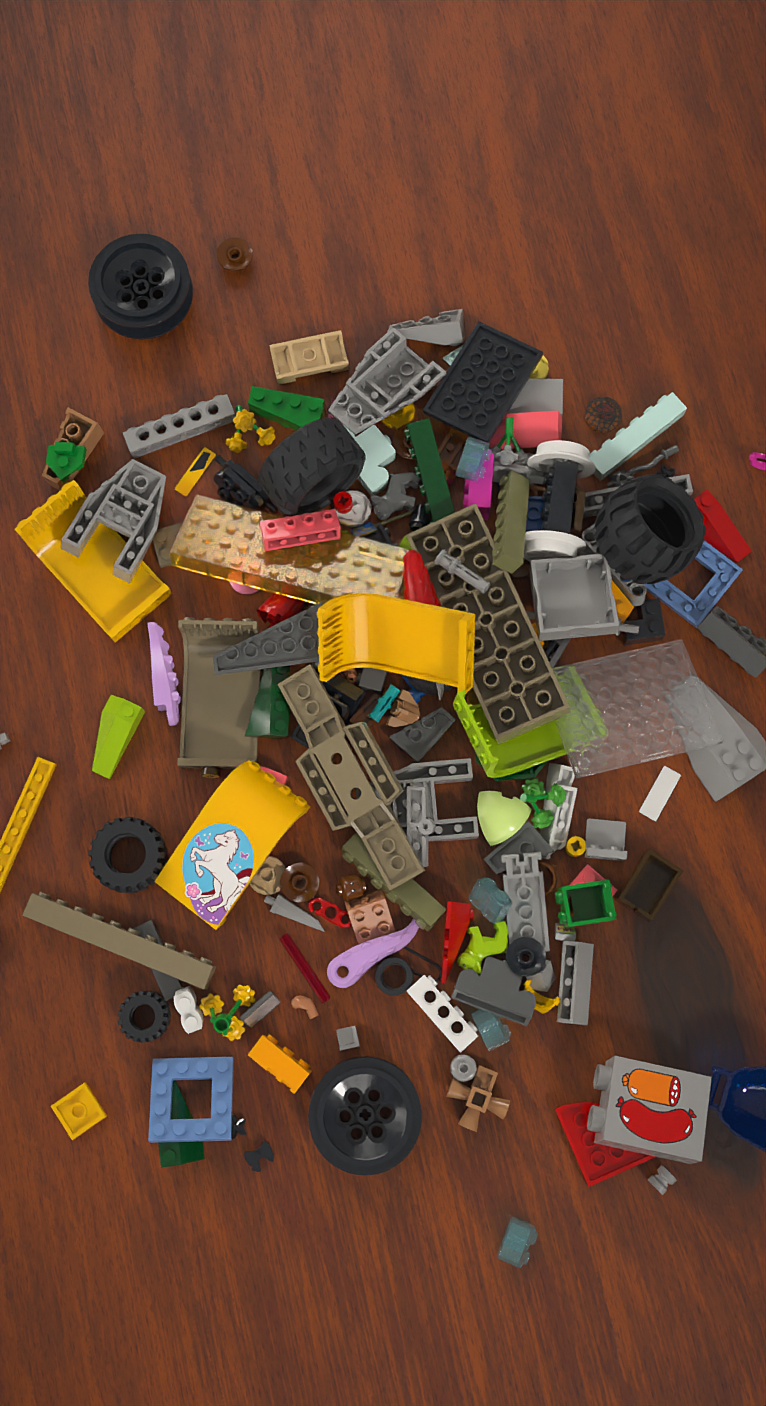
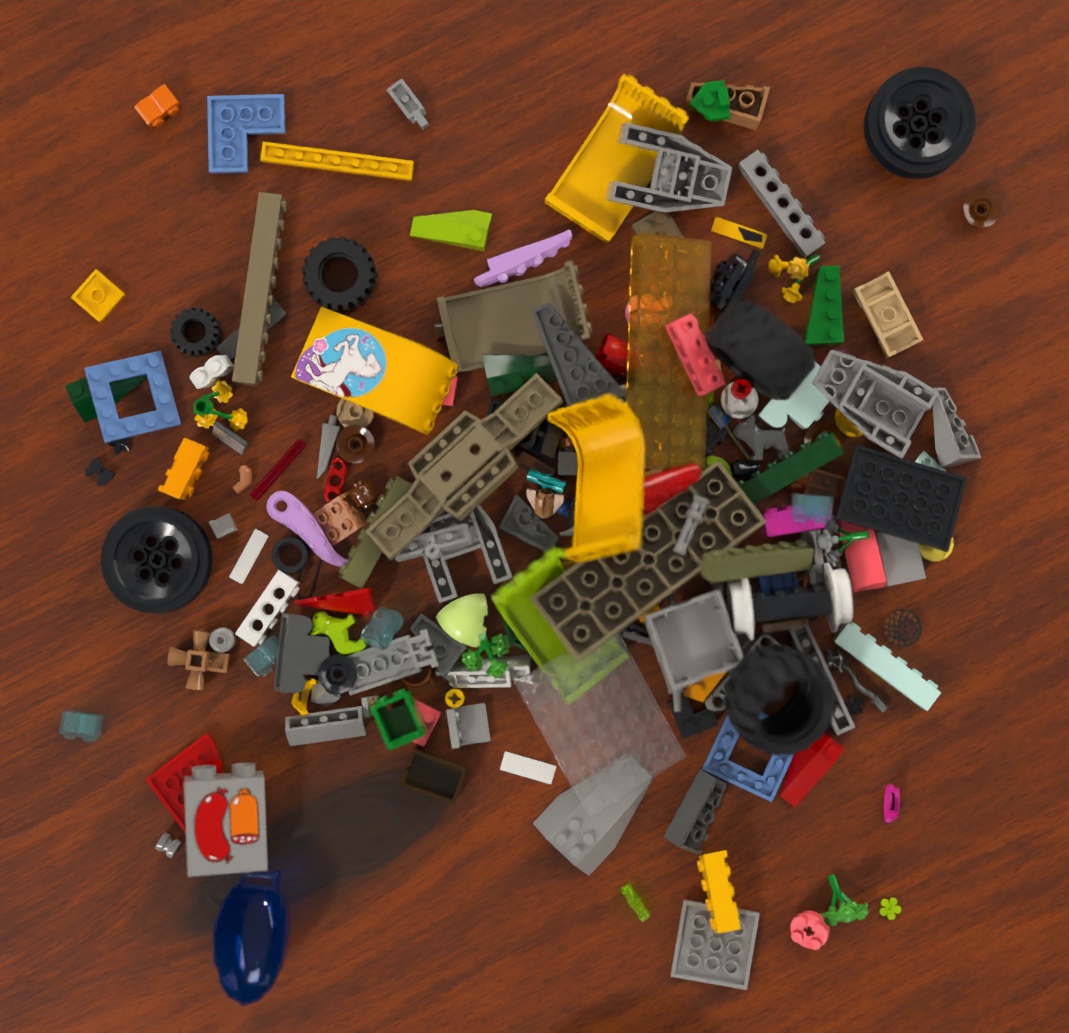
camera: 75 degrees right, 10 degrees up
(384, 1020) = (248, 556): none -> white sticker

